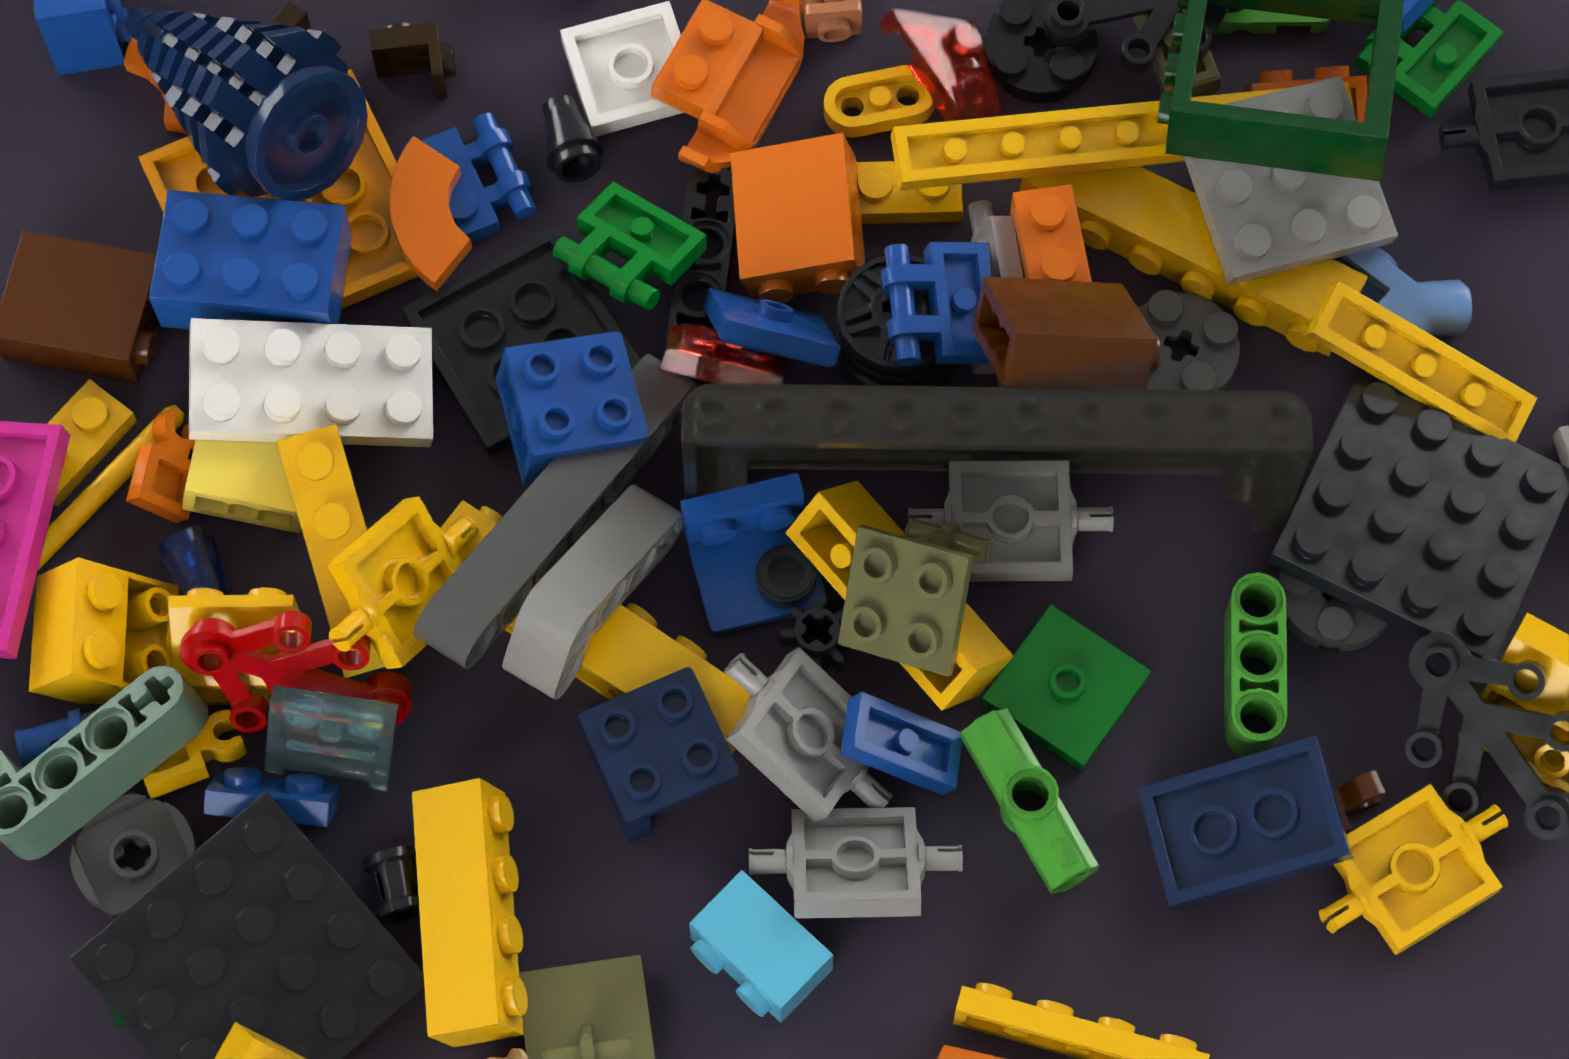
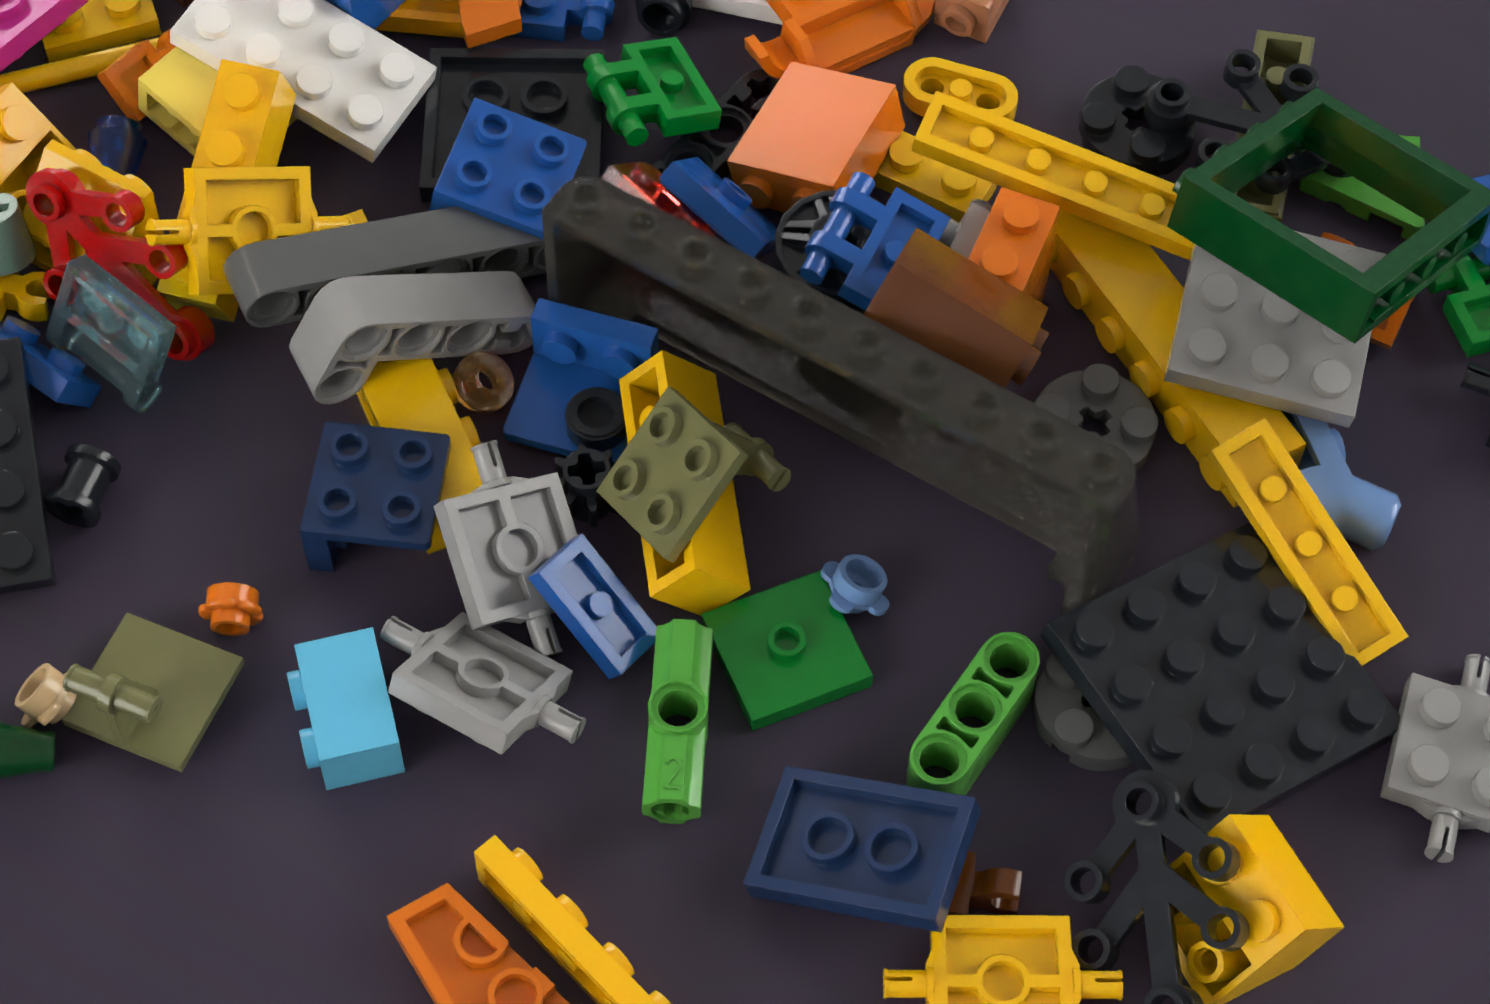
camera: 30 degrees right, 10 degrees down
(468, 913) = (118, 538): yellow brick -> none
(600, 918) = (231, 608): none -> orange plate
(653, 599) = (473, 393): none -> clear orange plate
(947, 63) = (1039, 81): clear red wing -> none
(1024, 513) = (840, 485): light grey plate -> none
(1088, 600) = (856, 585): none -> medium blue plate

